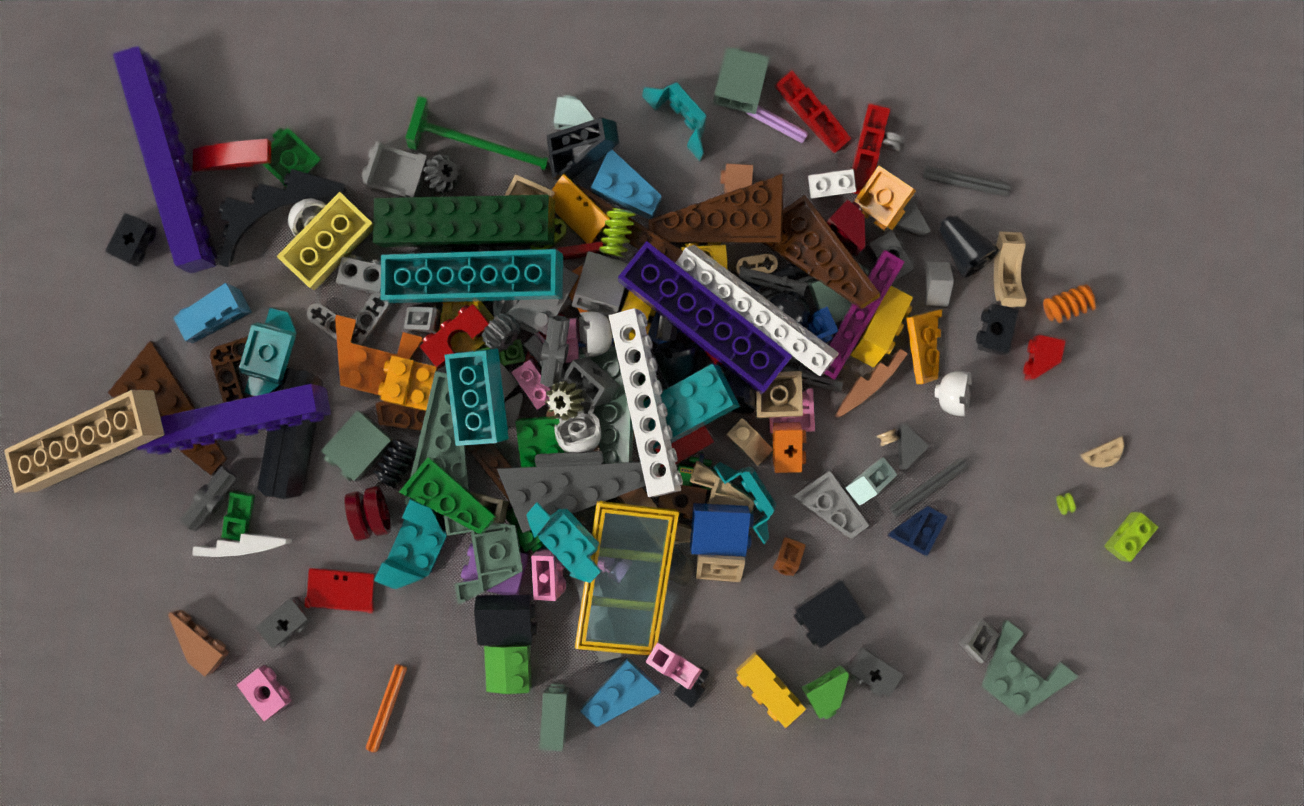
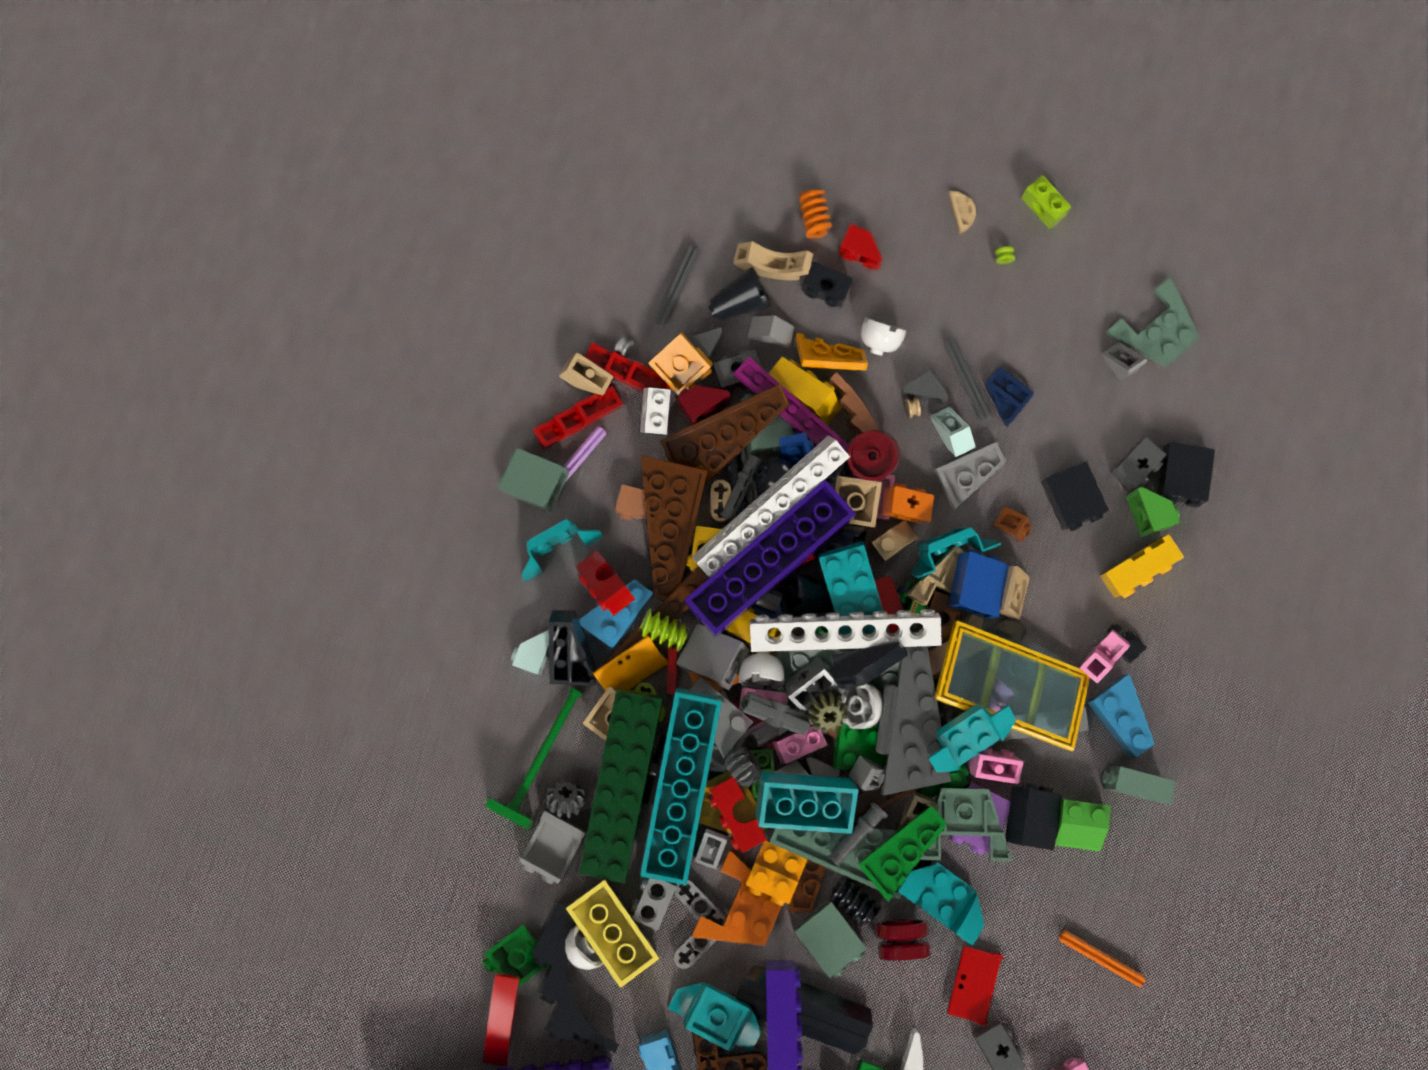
camera: 80 degrees left, 5 degrees down
(465, 457) = (865, 825): none -> dark grey pin
(514, 451) = (867, 774): none -> light grey slope
(616, 427) = (863, 665): none -> black slope
(648, 166) = (604, 583): none -> red arch
(826, 390) = (887, 453): none -> dark red wheel
(855, 109) = (585, 374): none -> tan slope
(873, 721) = (1186, 474): none -> black brick

